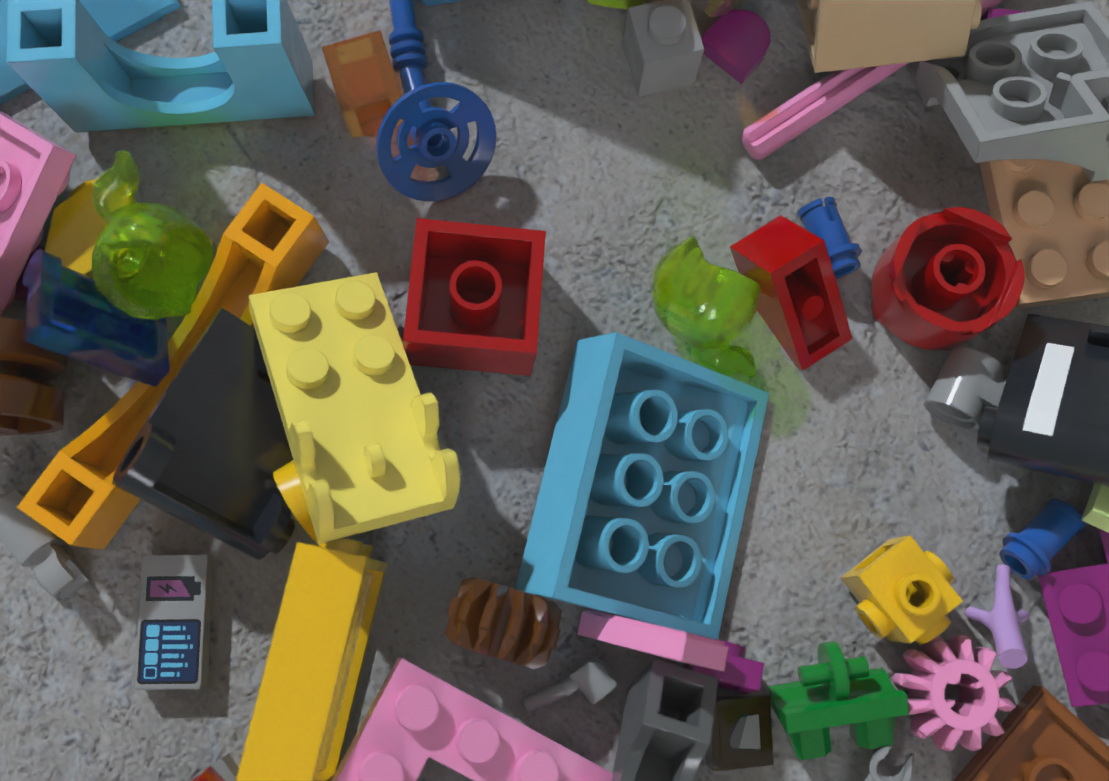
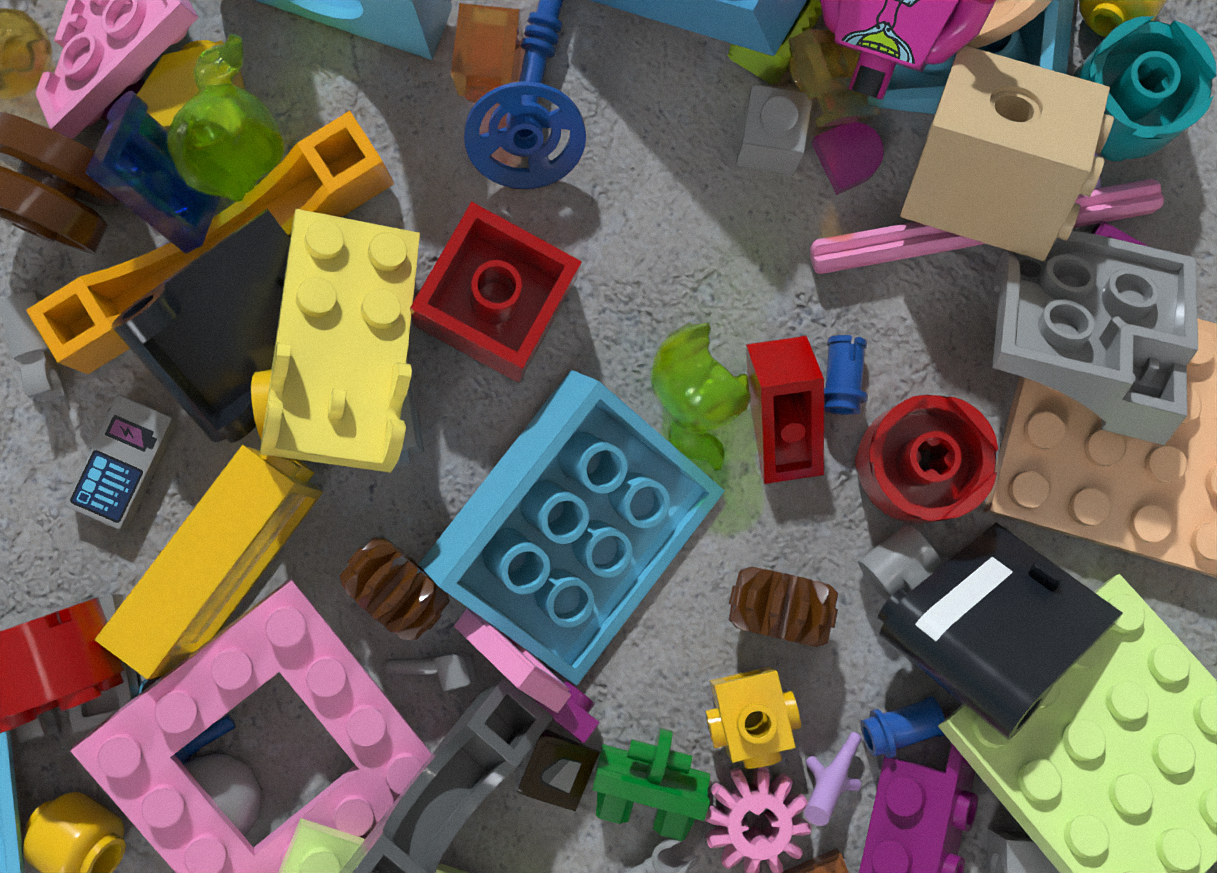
camera: 25 degrees right, 5 degrees up
(882, 472) = (783, 606): none -> reddish brown gear

